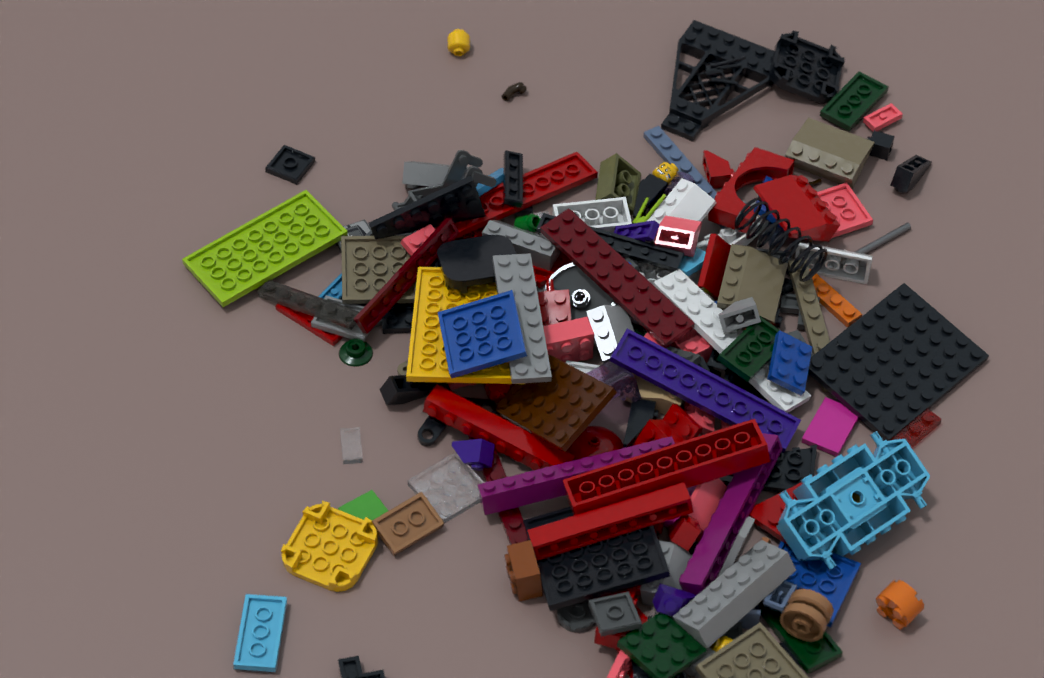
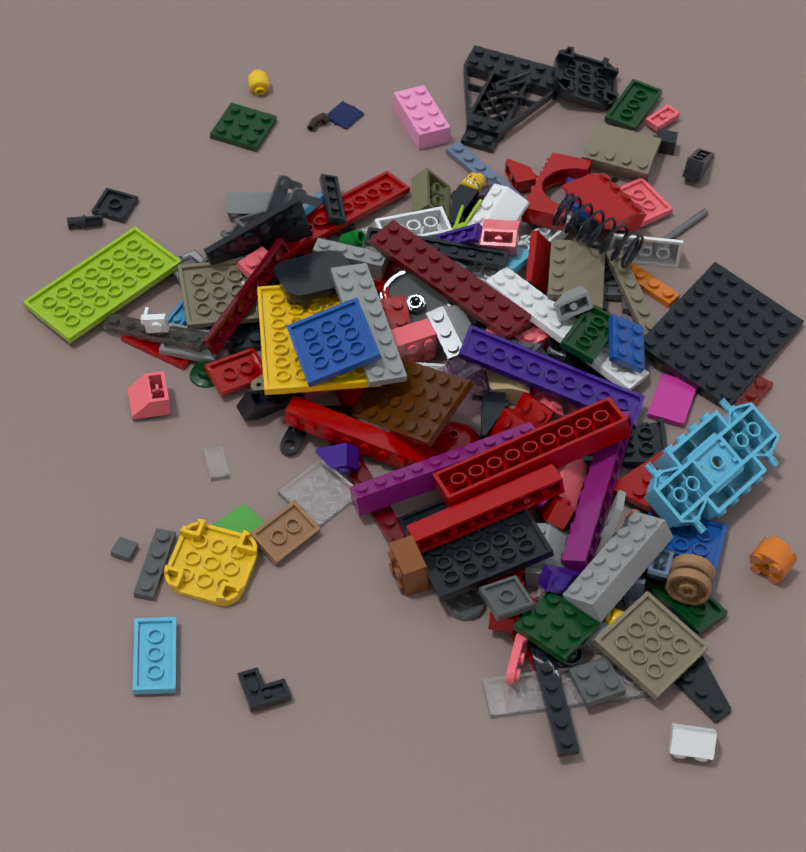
camera: 10 degrees left, 0 degrees up
(246, 523) = (124, 549): none -> dark grey tile
(255, 179) = (83, 221): none -> black axle
(272, 544) = (154, 564): none -> dark grey plate
(294, 370) = (149, 396): none -> coral slope
(308, 295) = (154, 322): none -> white bracket
(383, 353) = (235, 371): none -> red tile
(435, 90) = (243, 127): none -> dark green plate
(544, 86) = (344, 115): none -> clear blue piece
(623, 95) = (421, 117): none -> bright pink brick

